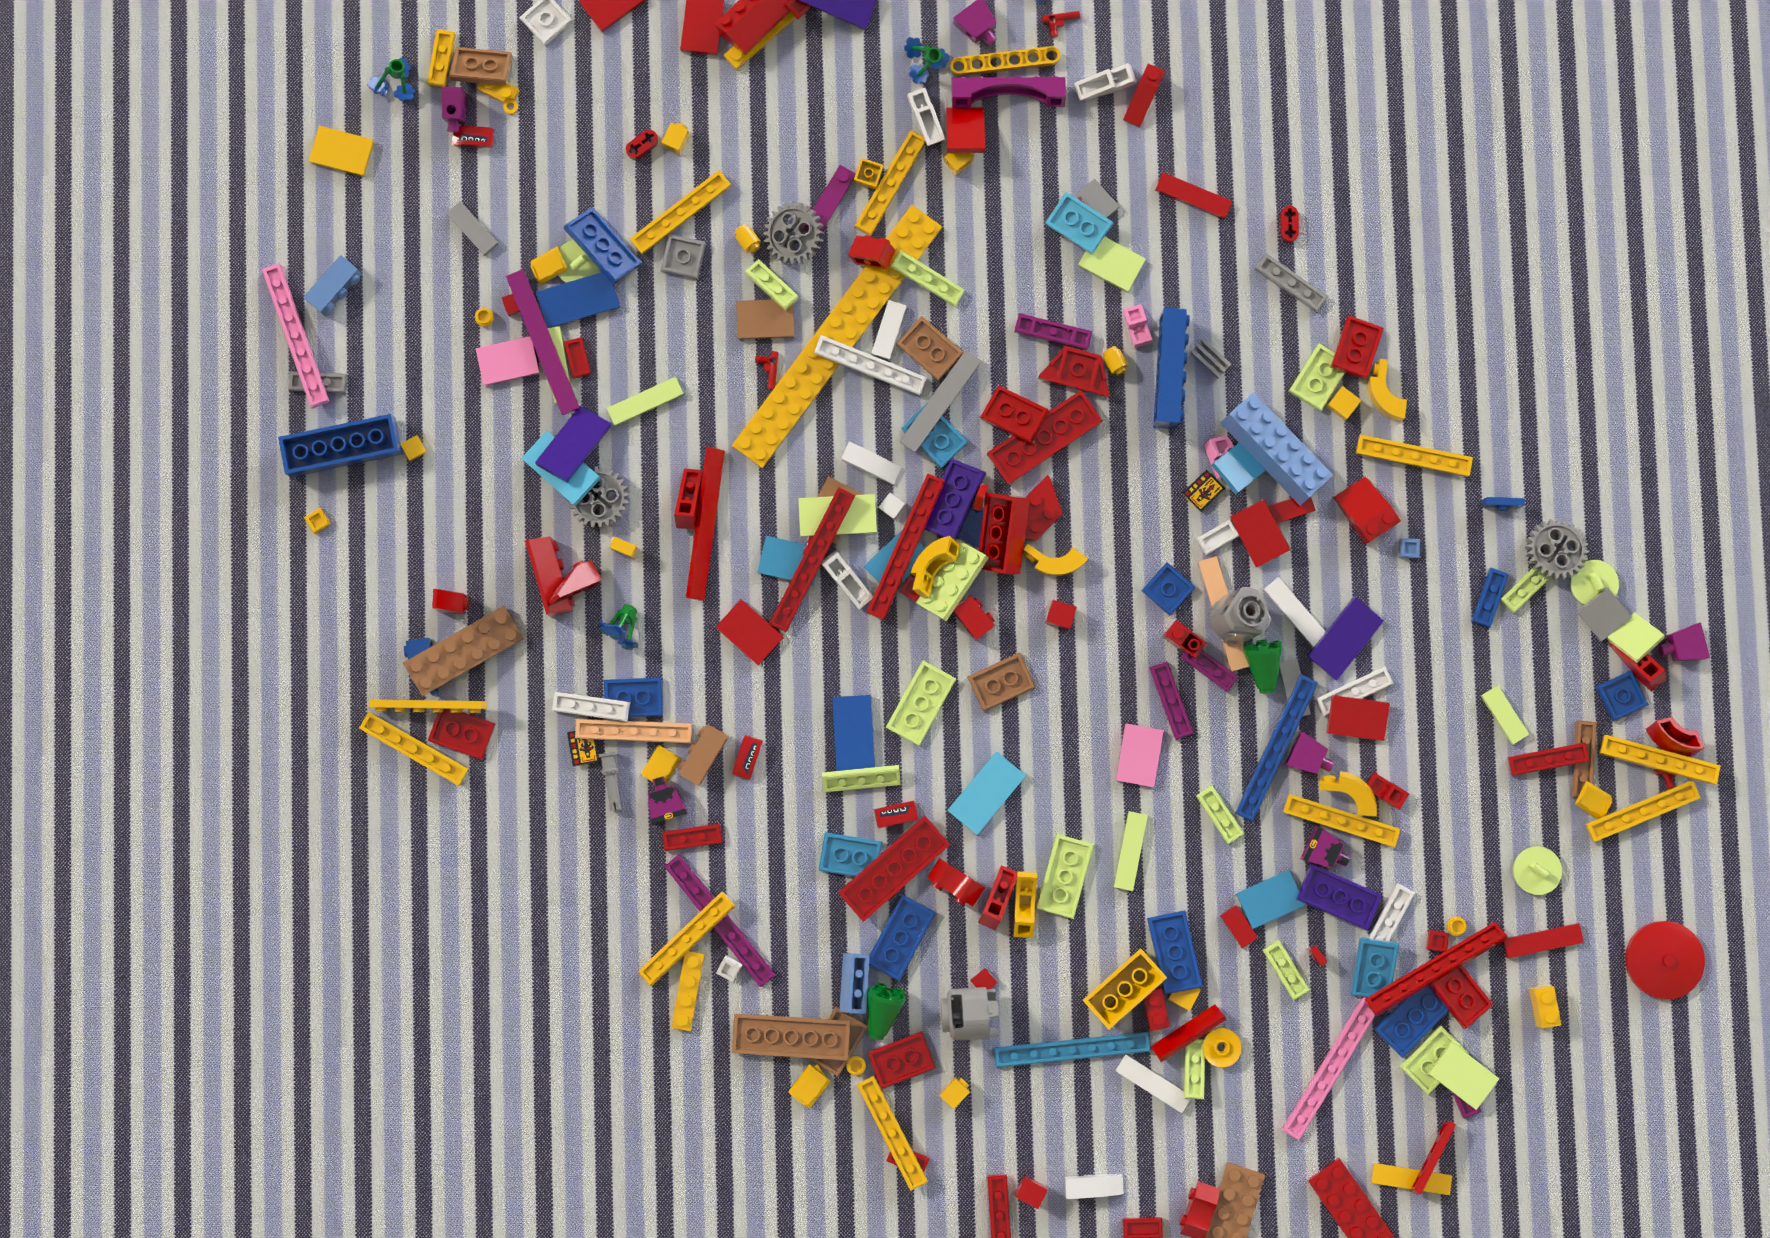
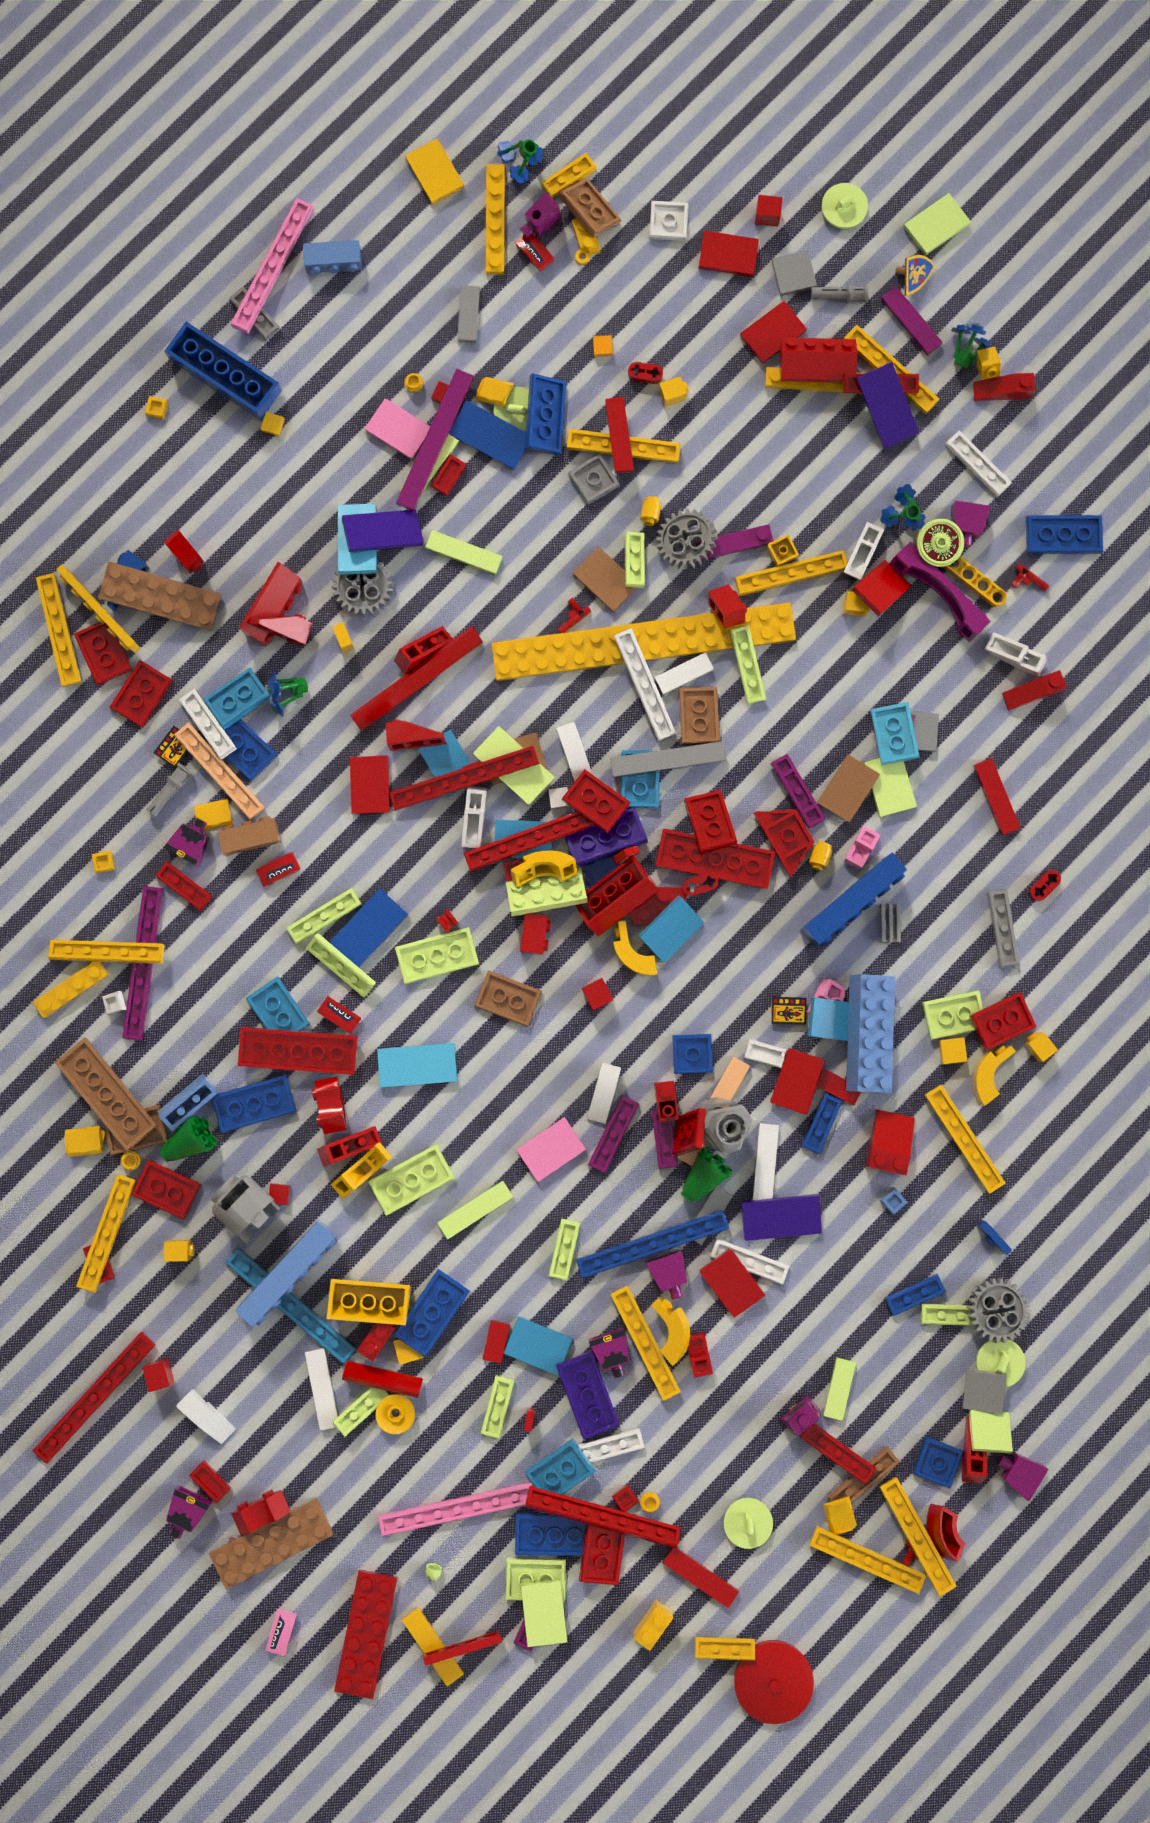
camera: 40 degrees right, 0 degrees up
(420, 142) = (495, 218): none -> yellow plate
(520, 734) = (141, 693): none -> red tile
(591, 155) = (602, 346): none -> light orange tile
(592, 667) = (237, 698): none -> dark azure tile
(617, 879) = (103, 862): none -> yellow tile
(670, 207) = (619, 435): none -> red tile
(742, 569) = (406, 735): none -> red slope
(813, 756) = (324, 916): none -> yellowish green tile
(903, 671) = (447, 920): none -> red wheel
(921, 481) = (596, 801): none -> red tile
(974, 57) = (940, 542): none -> yellowish green shield
(1047, 1028) = (285, 1273): none -> medium blue brick
(1049, 462) = (702, 888): none -> red beam
(1065, 517) = (671, 929): none -> dark azure tile
(1086, 294) = (848, 788): none -> medium nougat tile
(1135, 678) = (604, 1093): none -> white slope
(1224, 643) = (689, 1132): none -> red tile
(1306, 545) = (821, 1123): none -> blue tile
(1359, 1127) = (433, 1571): none -> yellowish green hinge
(1400, 338) = (1040, 1046): none -> yellow brick
(1498, 760) = (801, 1416): none -> magenta torso
(1609, 971) = (724, 1648): none -> yellow tile

